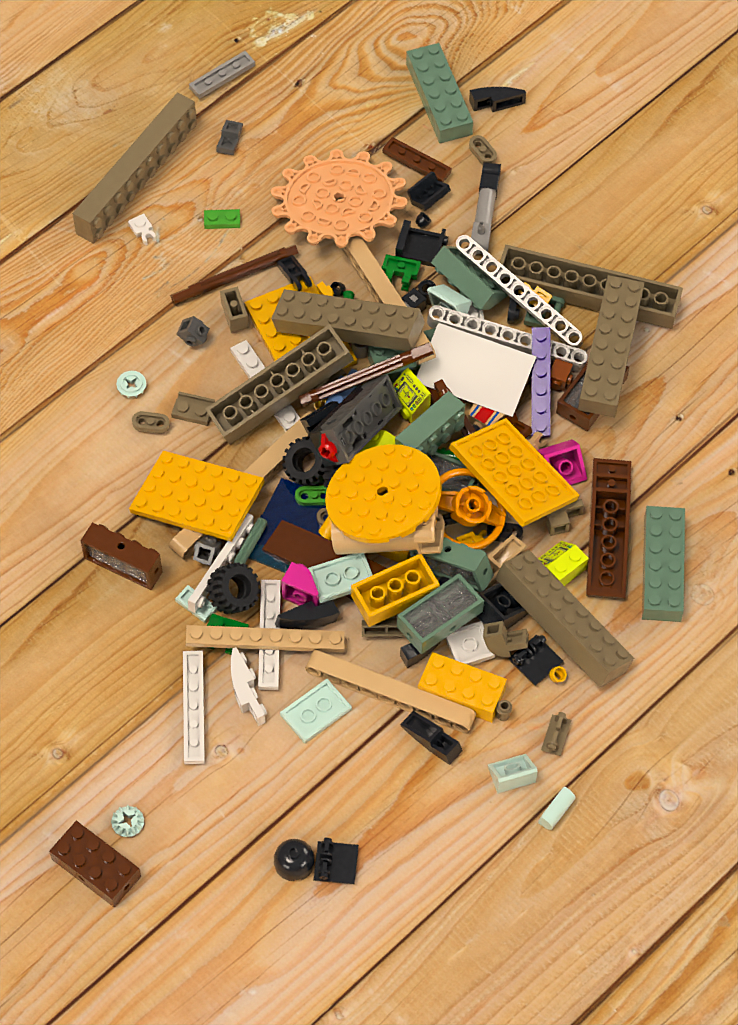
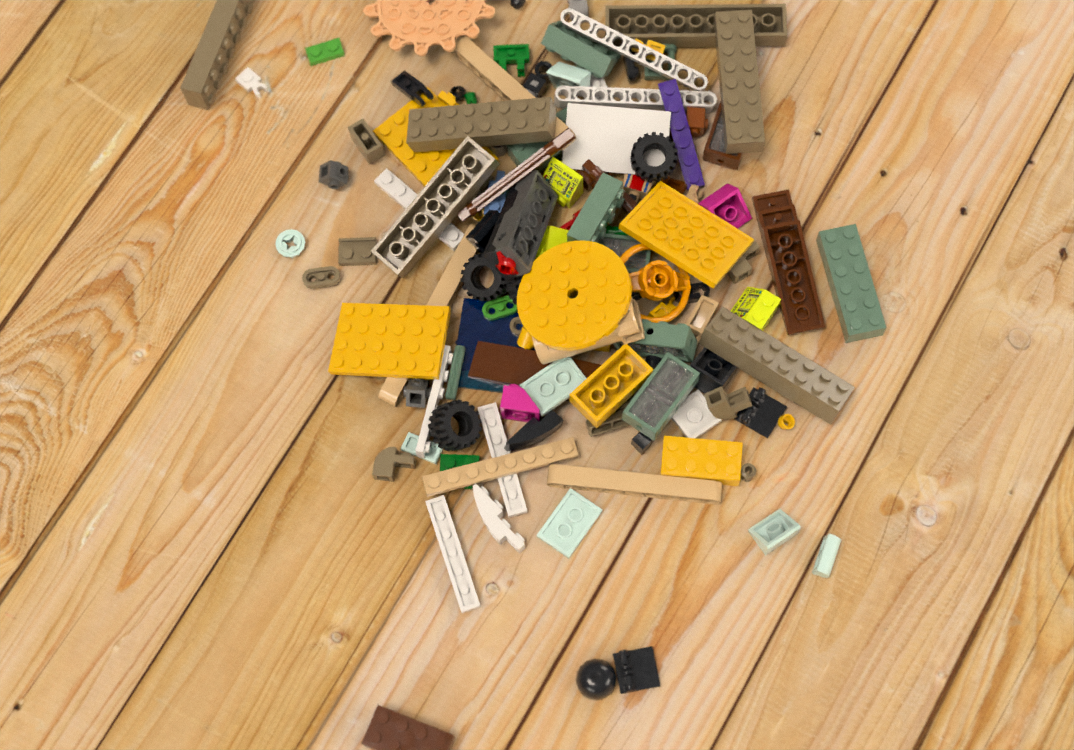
camera: 10 degrees left, 10 degrees up
(121, 555) = (336, 422): reddish brown brick -> none
(124, 829) = (425, 696): light aqua gear -> none
(160, 605) = (388, 460): none -> dark tan brick
(233, 274) = (353, 105): reddish brown piece -> none
(419, 244) = (523, 26): black panel -> none
(432, 737) = (687, 518): black slope -> none
(505, 379) = (659, 142): none -> black tyre
(556, 734) = (803, 481): dark tan hinge -> none

